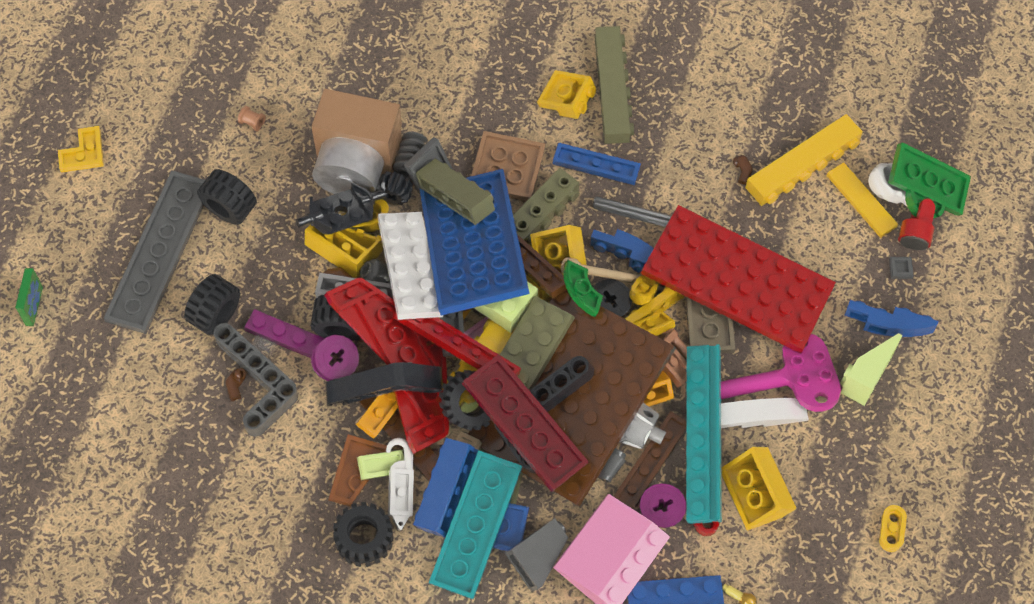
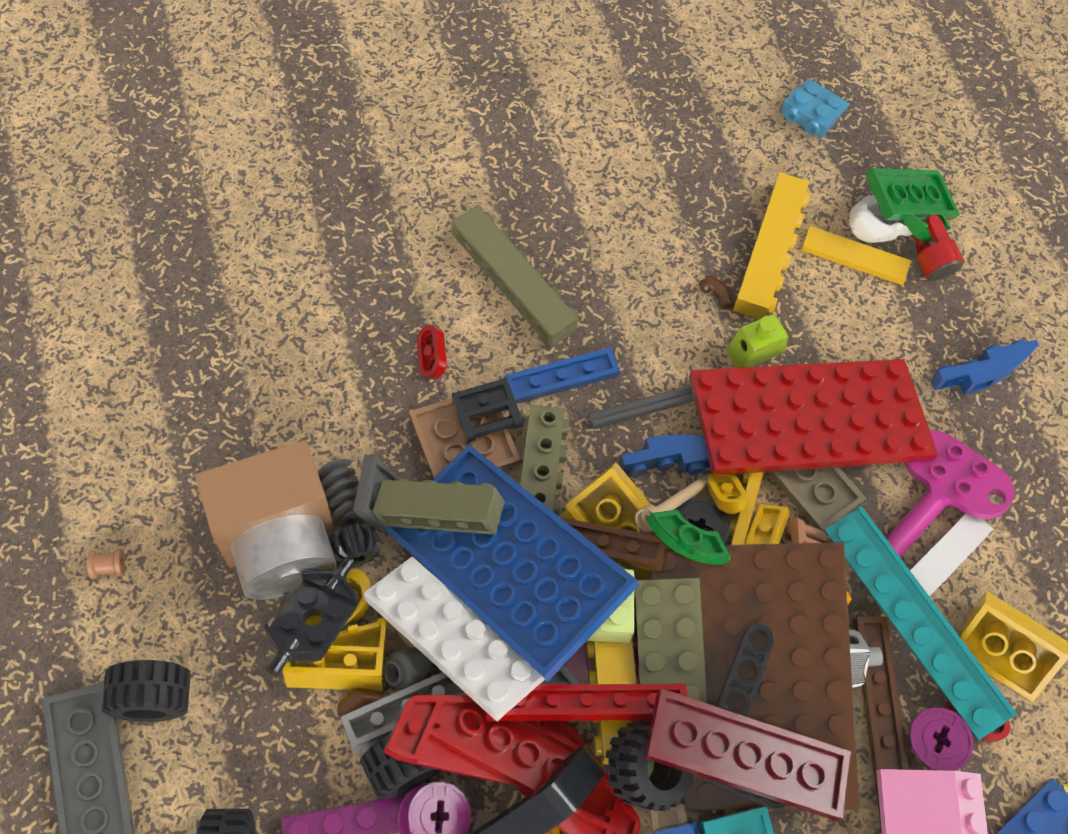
camera: 40 degrees left, 0 degrees up
(521, 109) = (431, 352): none -> red plate
(530, 149) = (485, 401): none -> black plate
(567, 93) = (472, 313): yellow plate -> none
(741, 214) = (761, 338): none -> lime torso
(863, 376) = (1021, 436): yellowish green slope -> none
(901, 267) = (947, 304): dark grey tile -> none
(916, 85) = (814, 108): none -> dark azure plate

